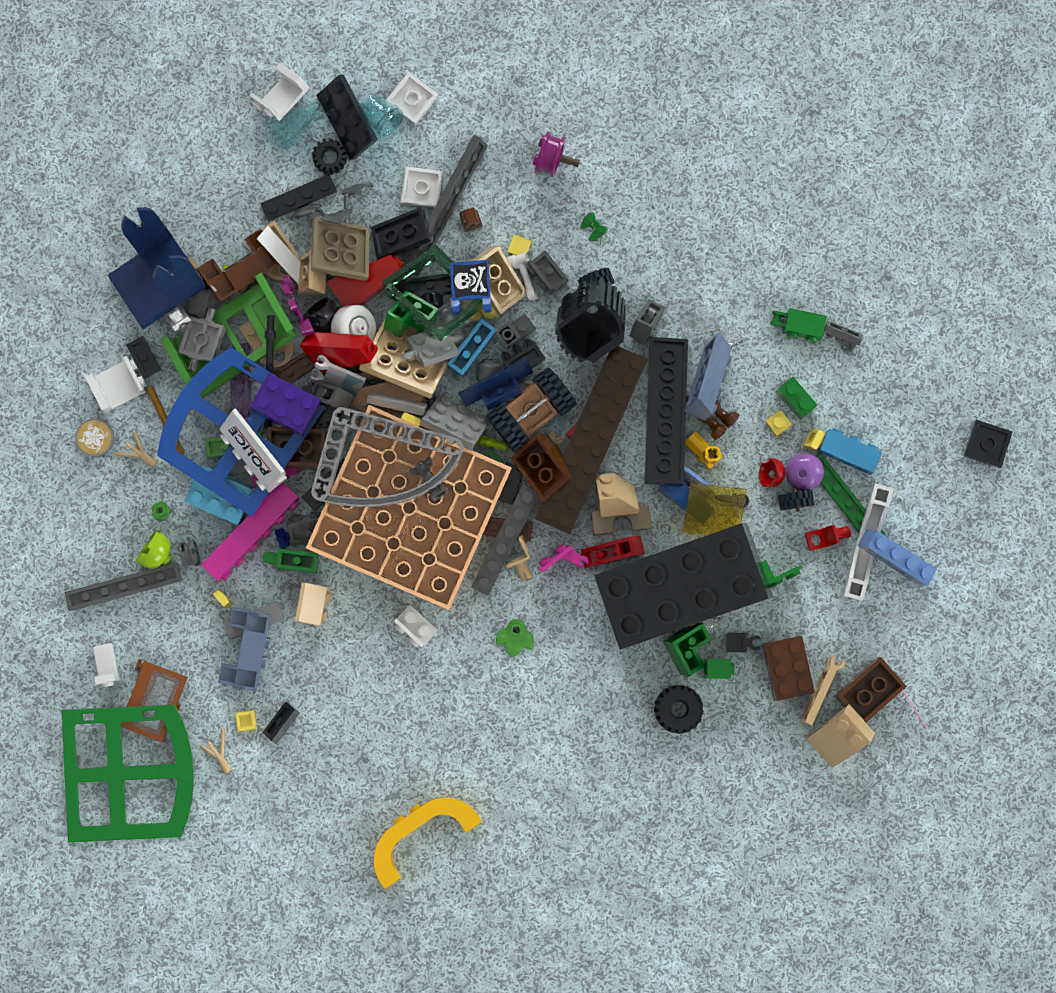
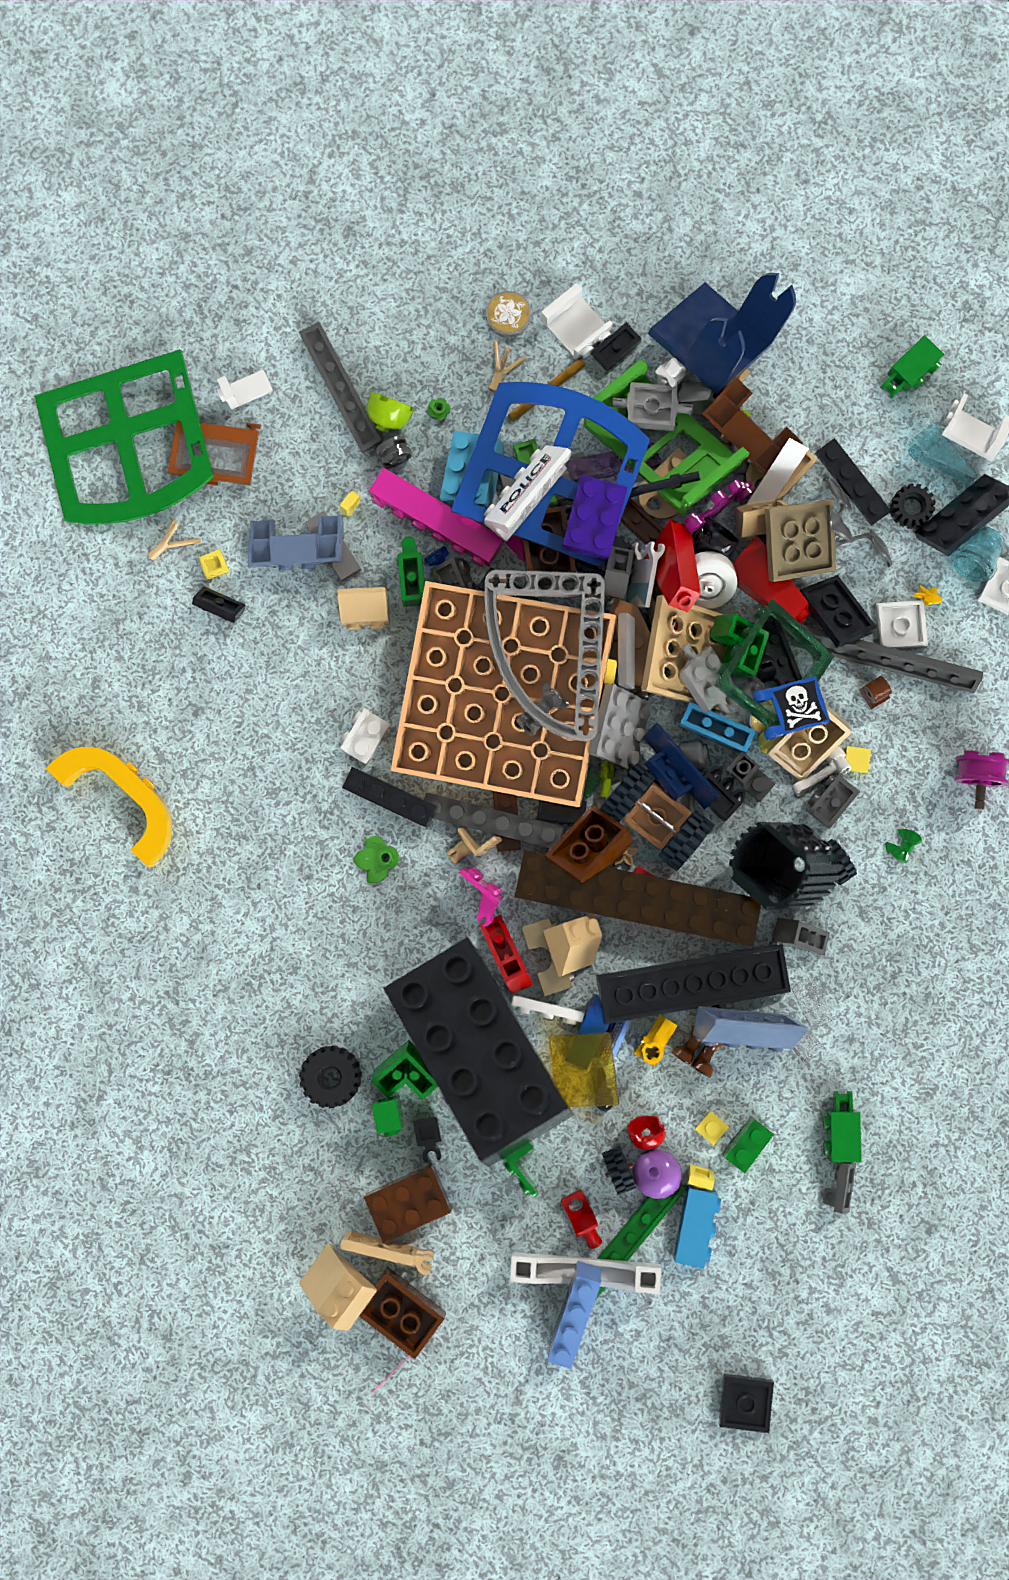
camera: 85 degrees right, 0 degrees up
(217, 128) = (913, 366): none -> green brick
(404, 160) = (928, 596): none -> yellow plant
(468, 616) = (389, 797): none -> black plate
(662, 528) = (547, 1010): none -> white plate

